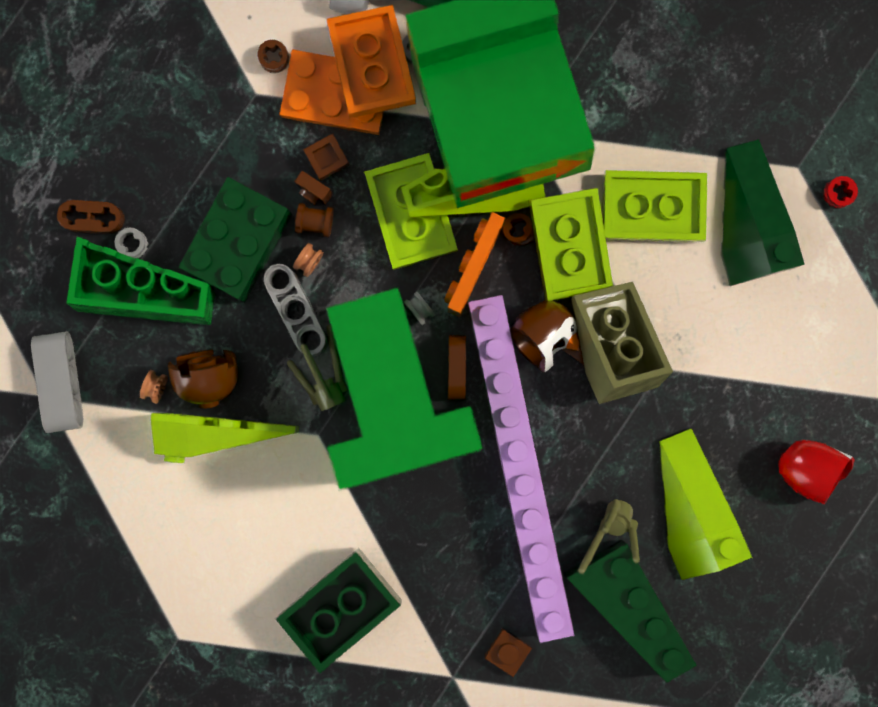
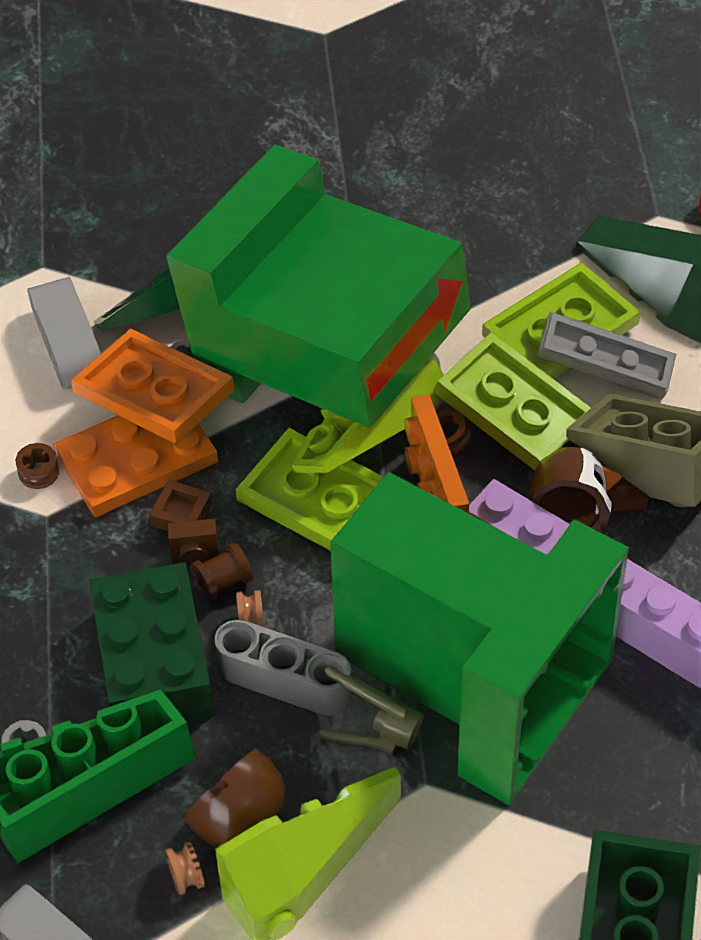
camera: 45 degrees left, 35 degrees down
(655, 254) = (606, 355): none -> light grey tile

